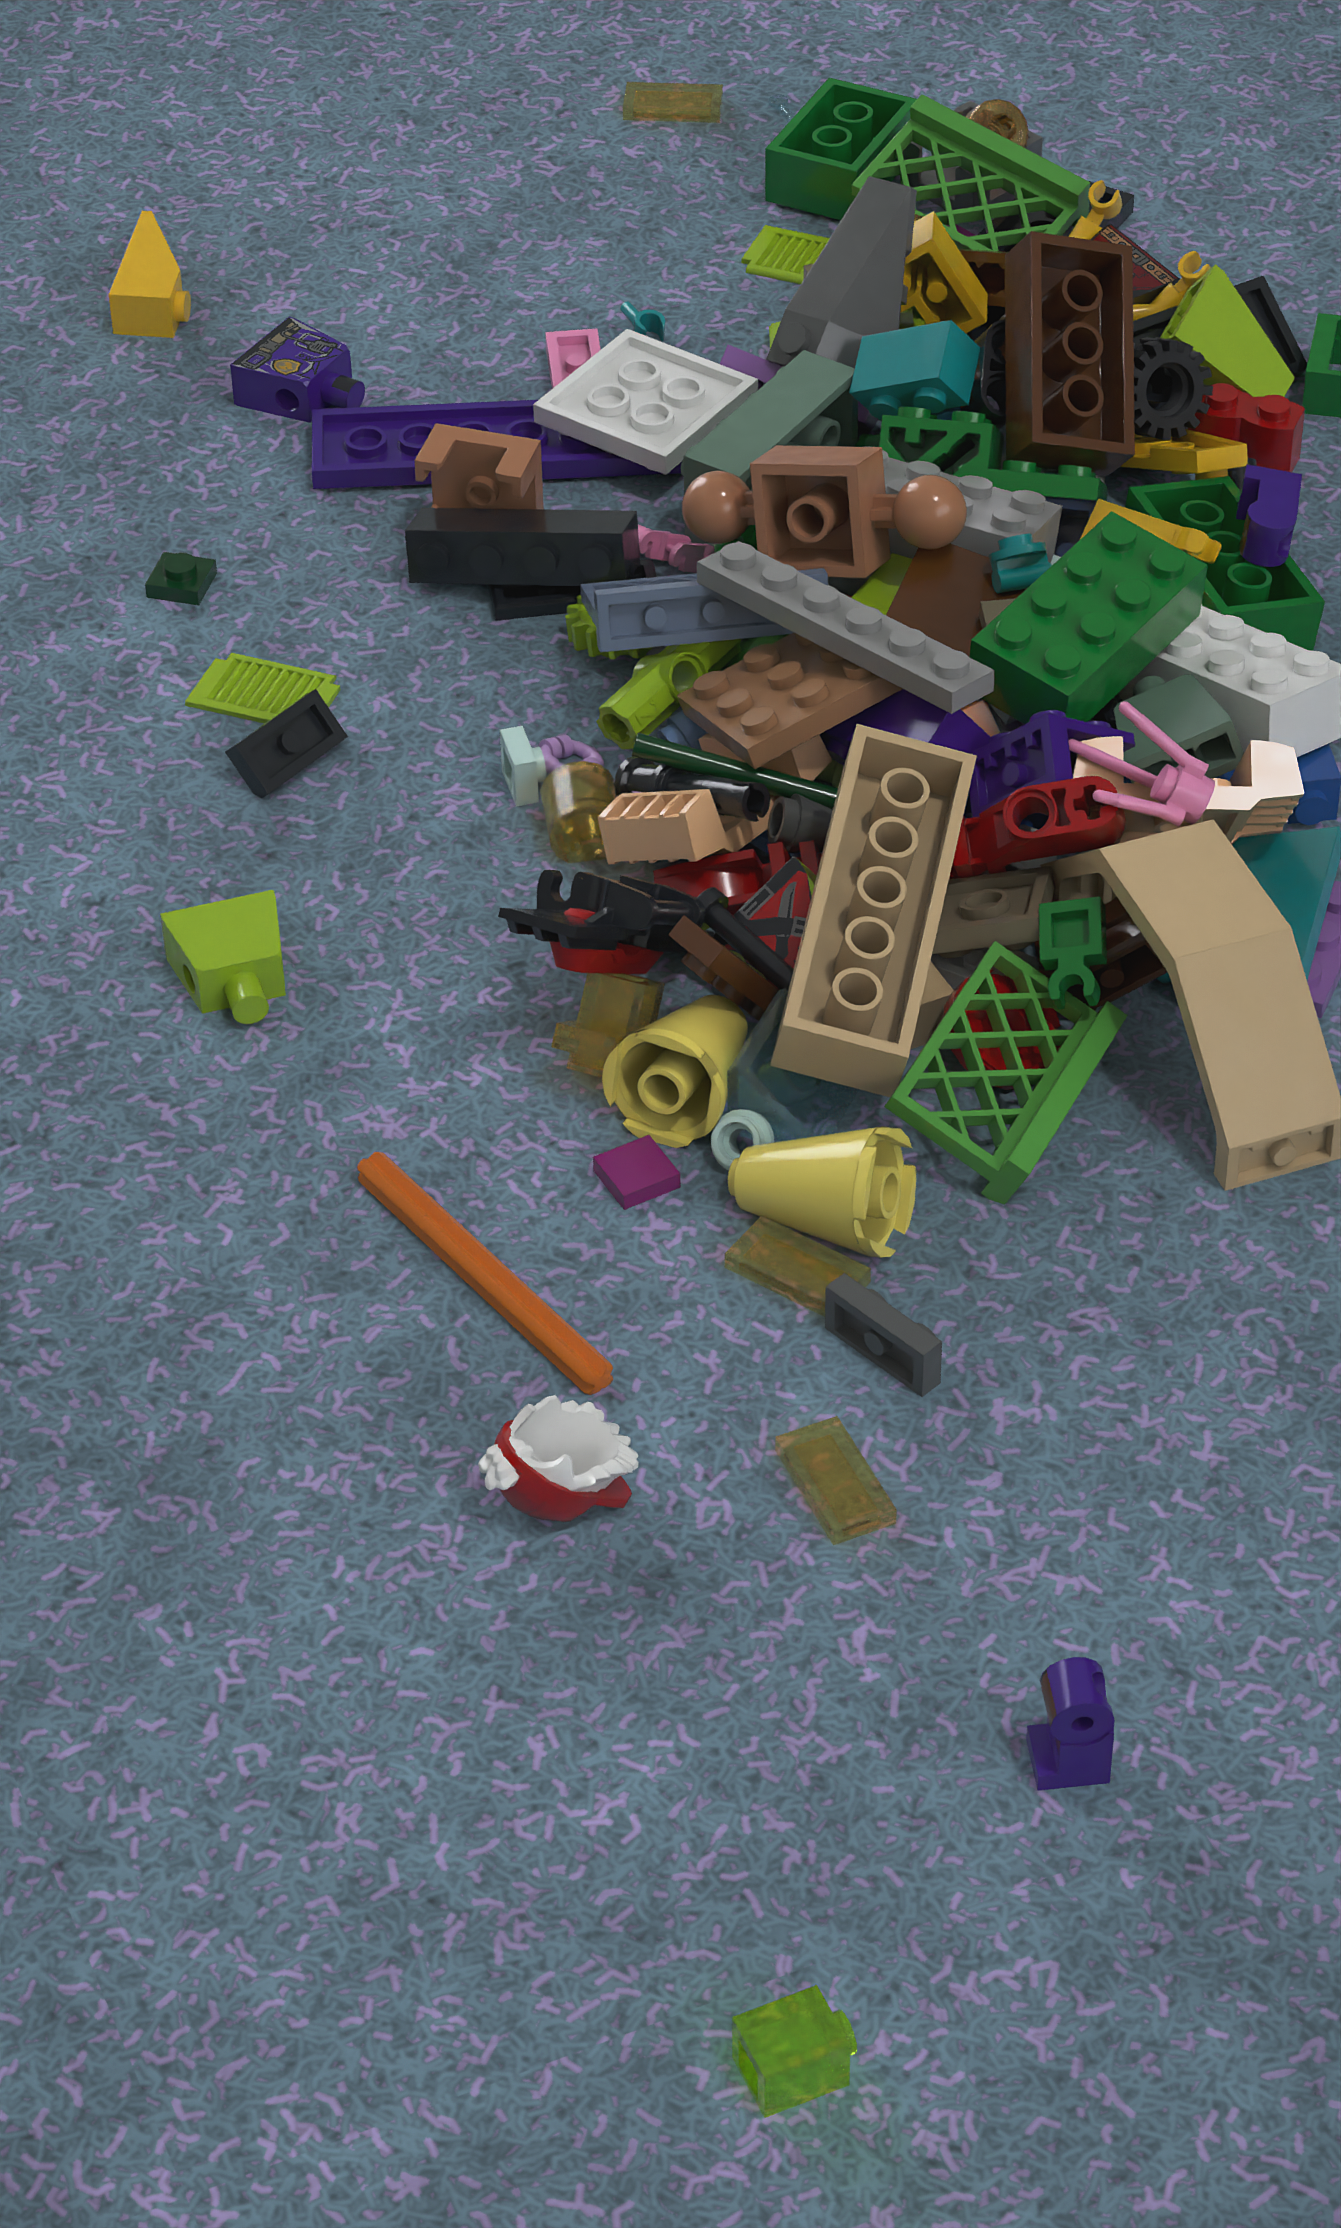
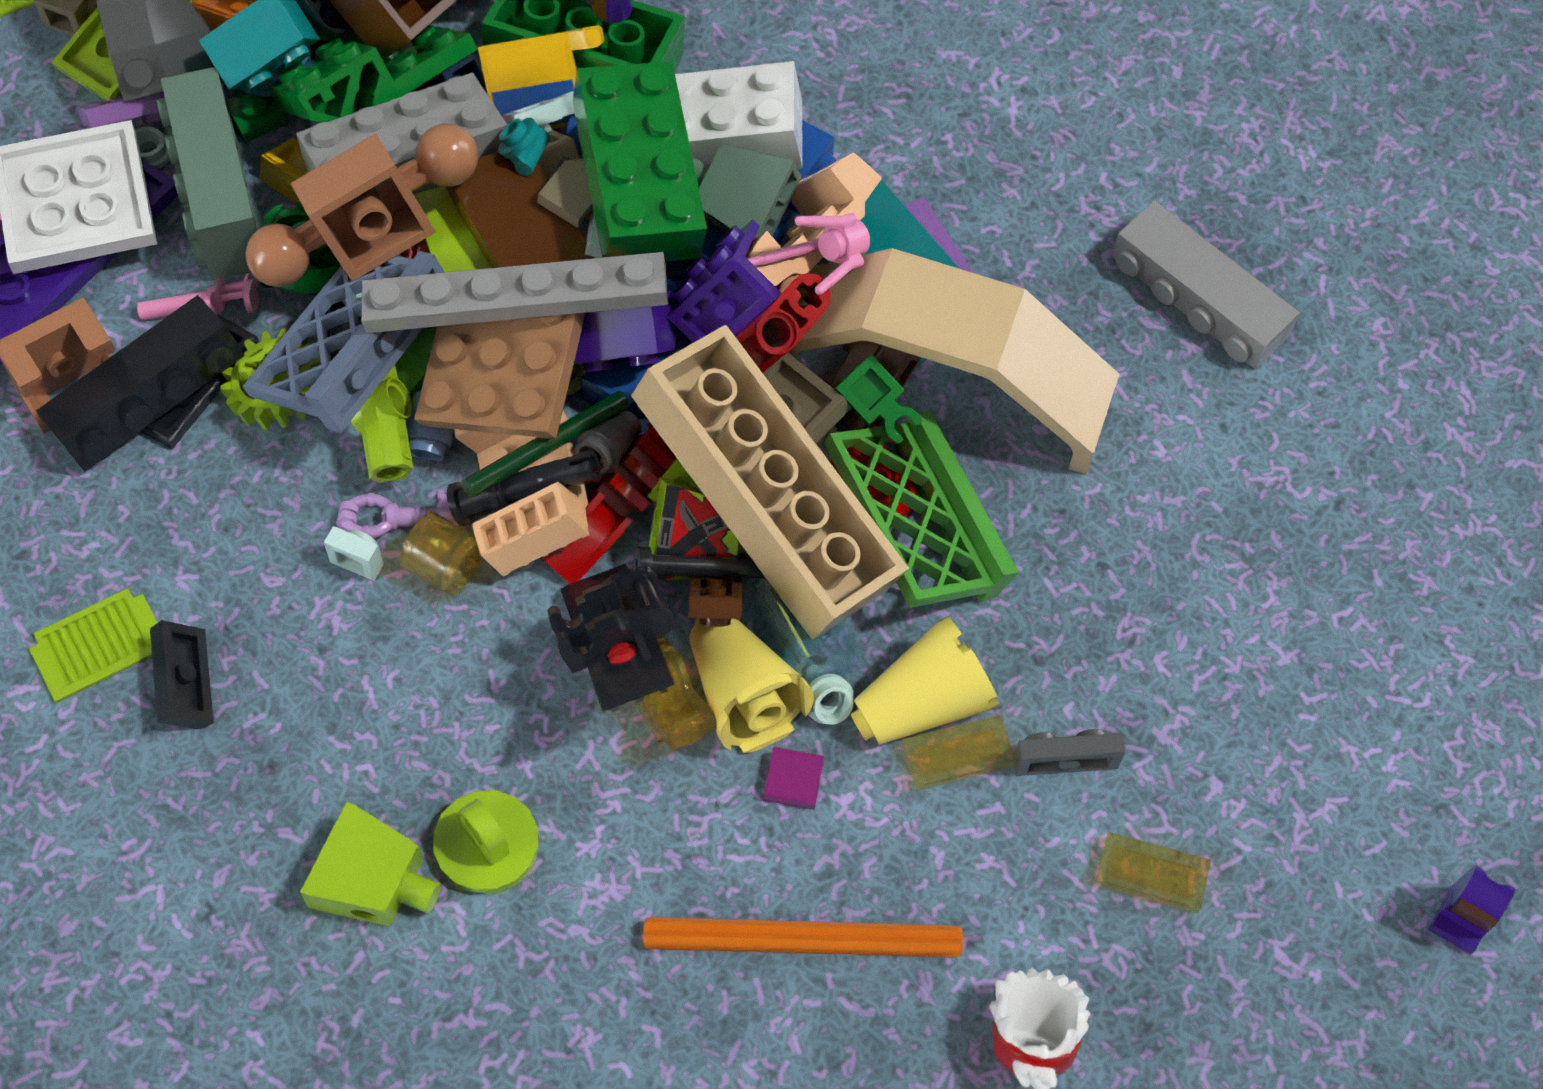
camera: 55 degrees left, 20 degrees up
(343, 1012) = (486, 842): none -> lime tile

